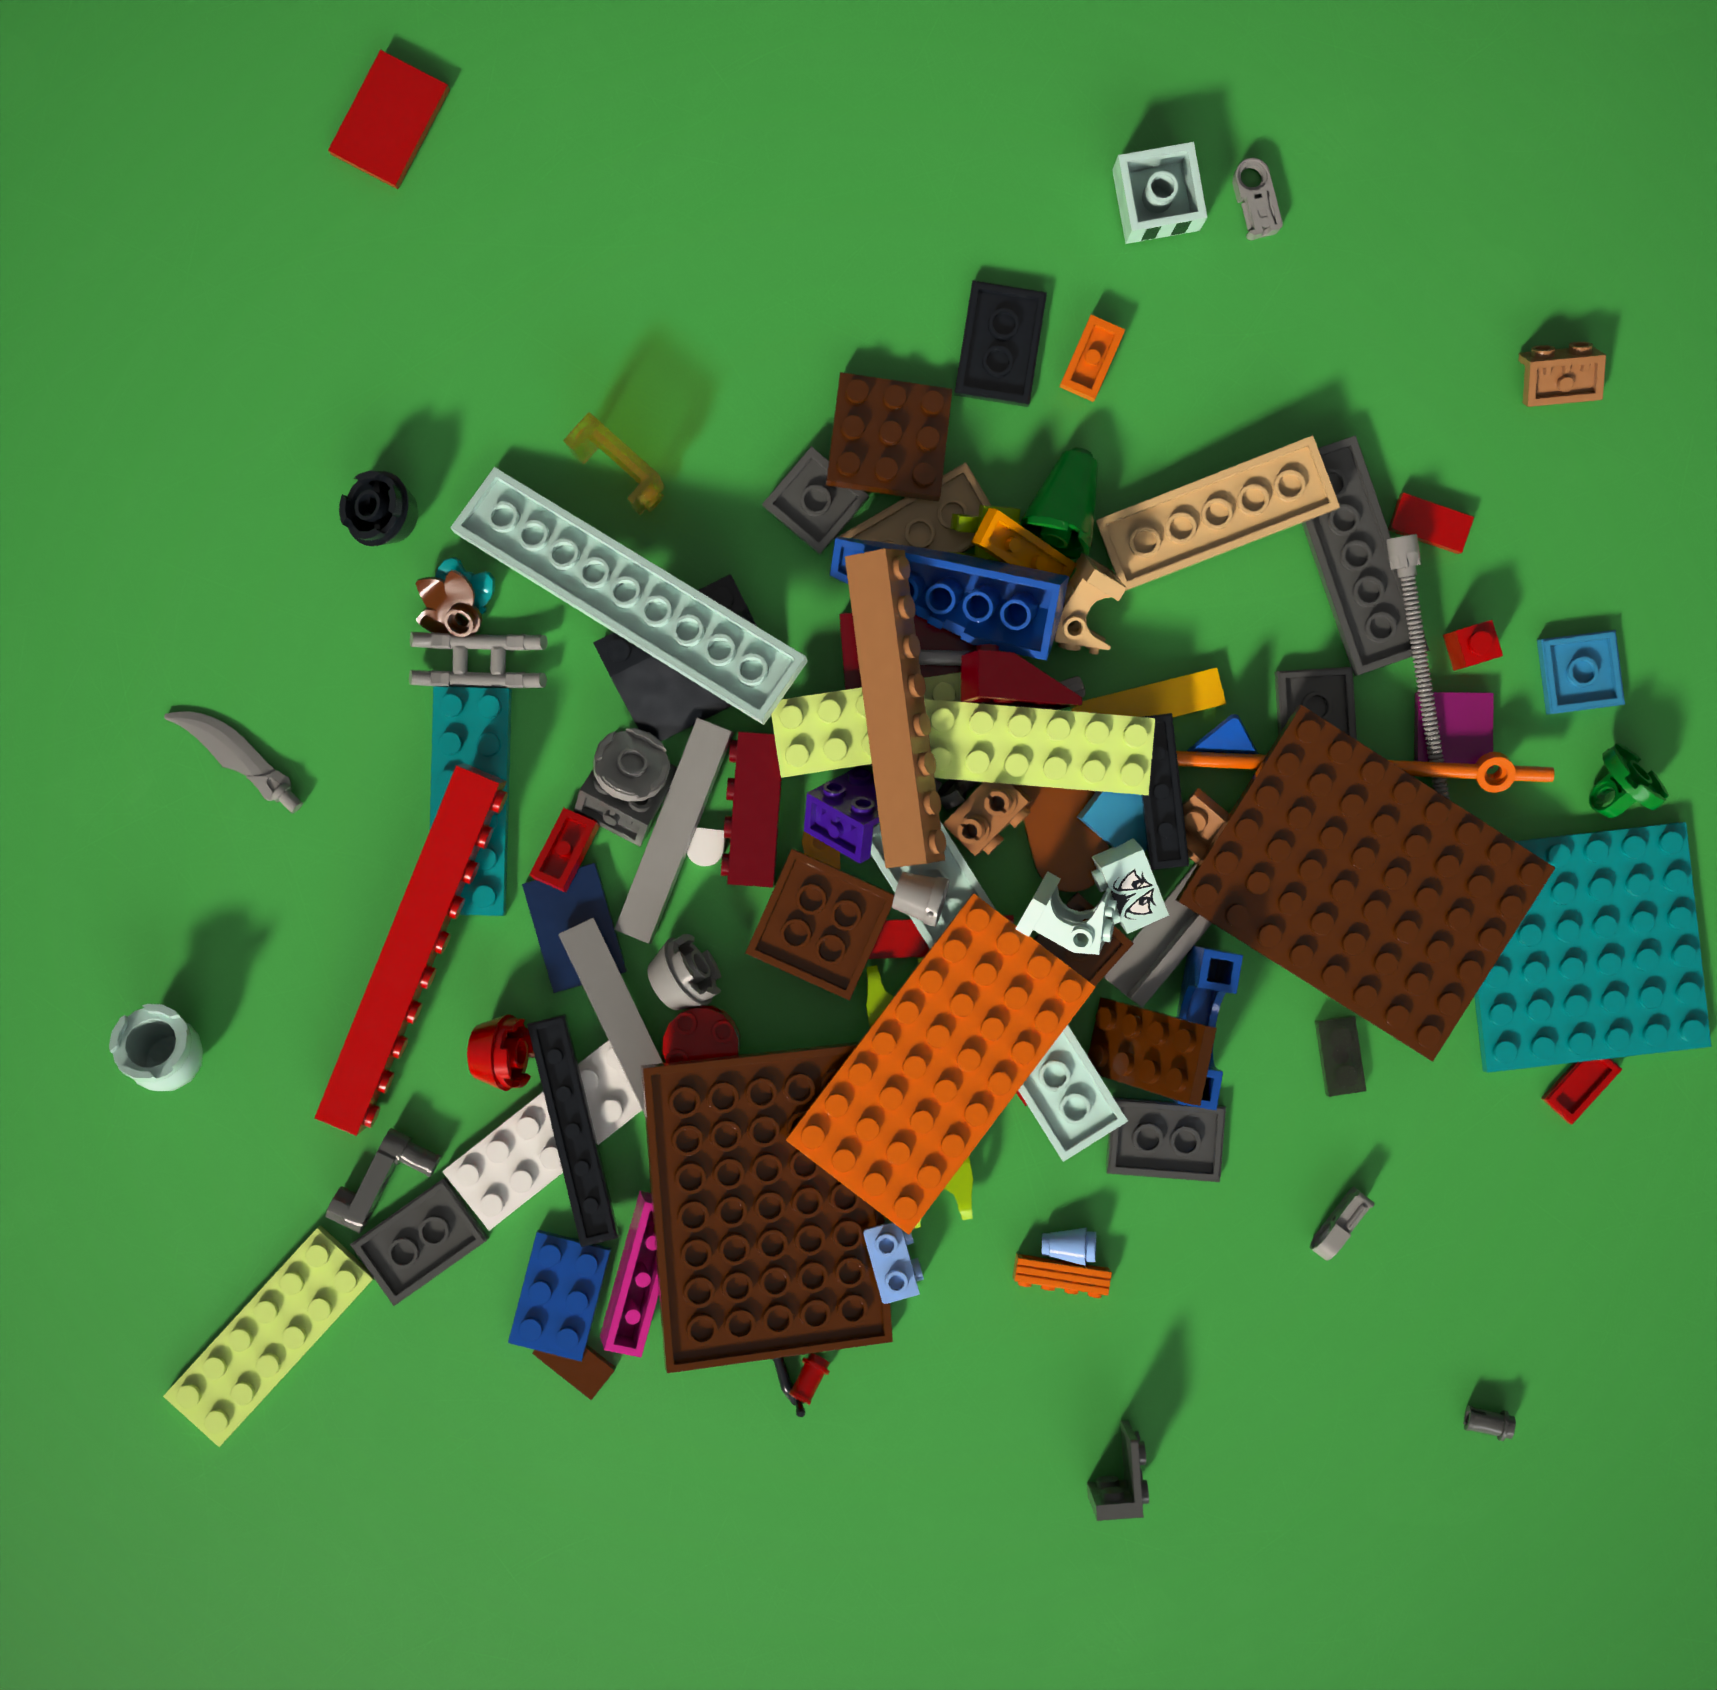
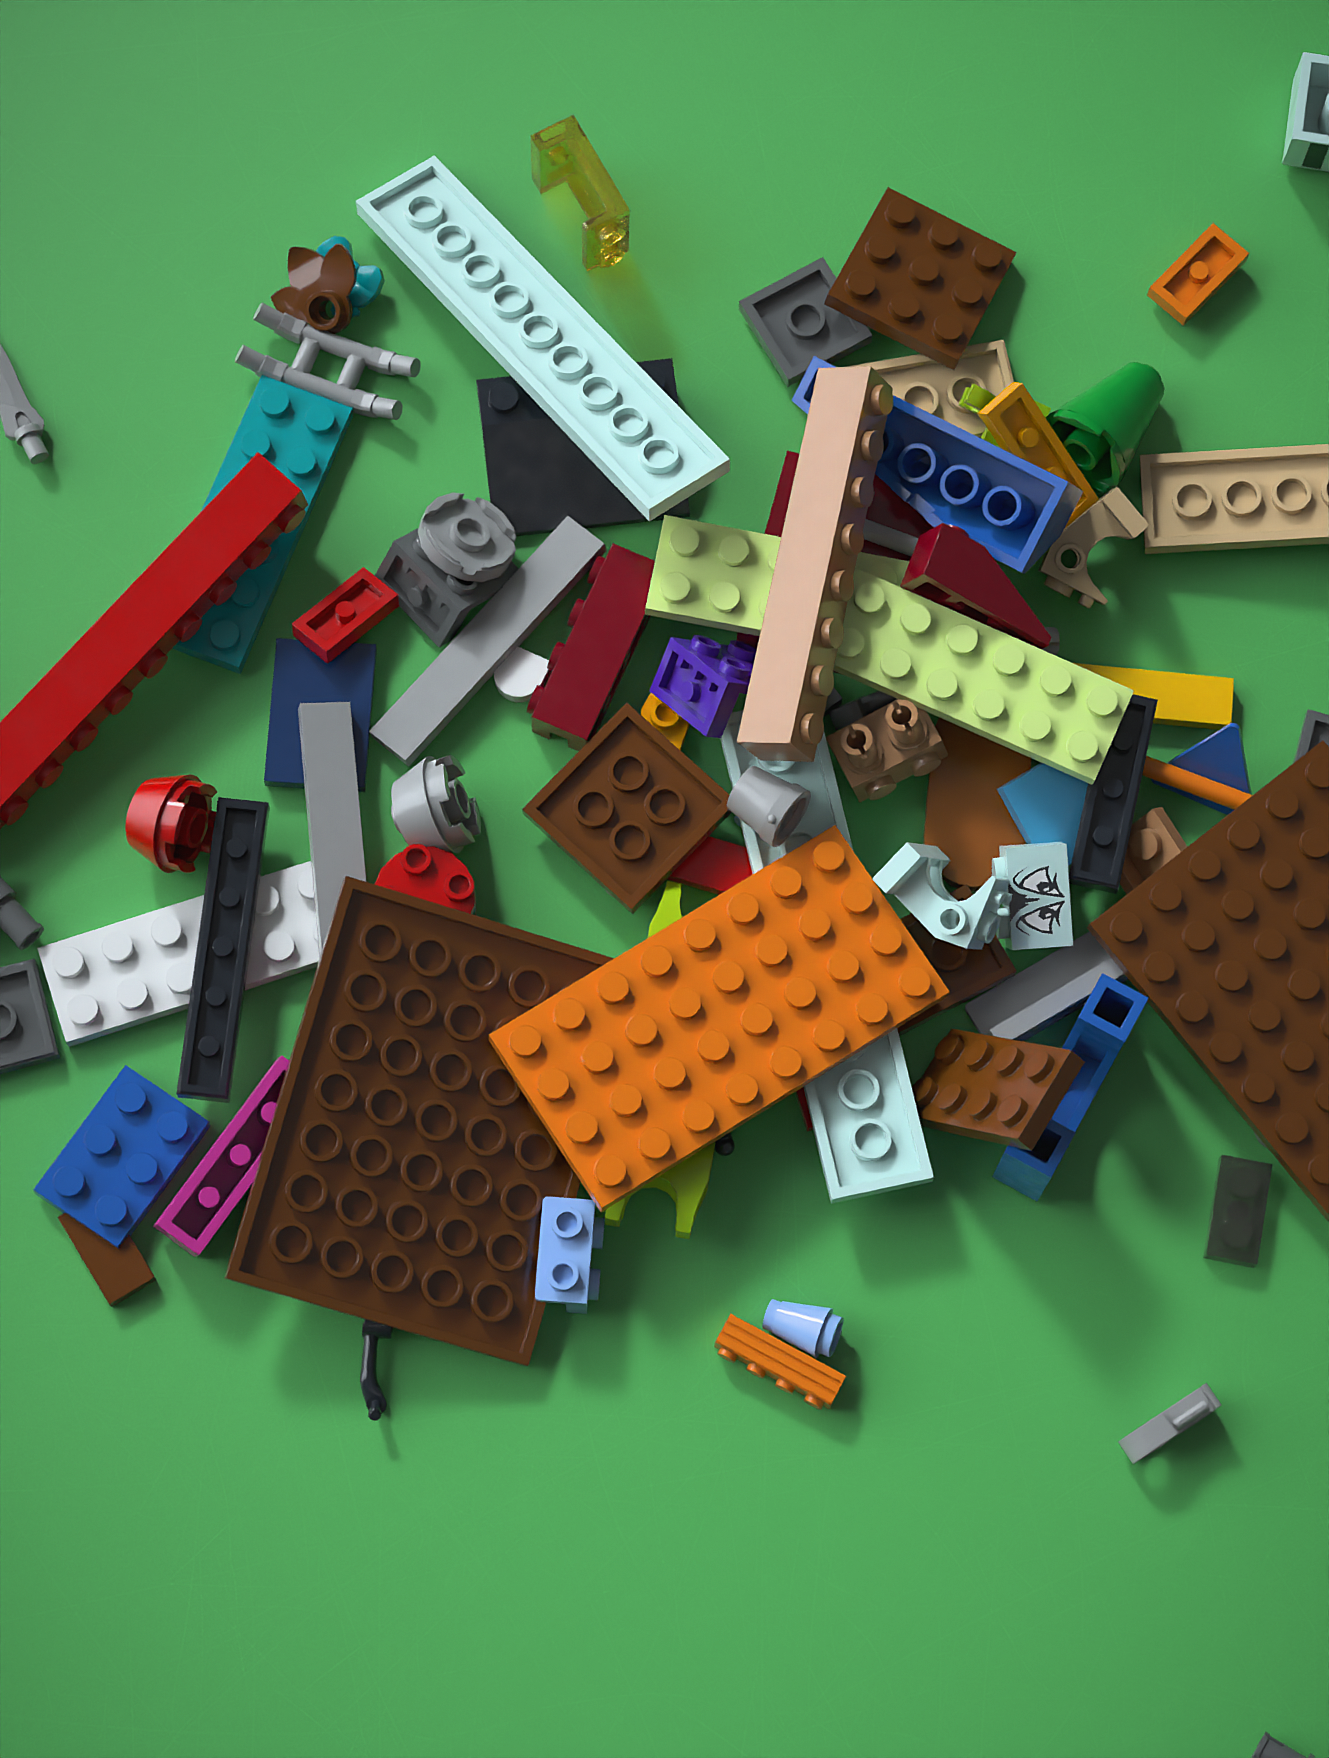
camera: 15 degrees right, 15 degrees down
(378, 509) = (280, 151): black cone -> none
(809, 1378) = (396, 1380): red pin -> none
(1000, 343) = (1092, 224): black tile -> none
(1122, 1498) = (744, 1662): dark grey bracket -> none
(1167, 1141) = (976, 1239): dark grey tile -> none

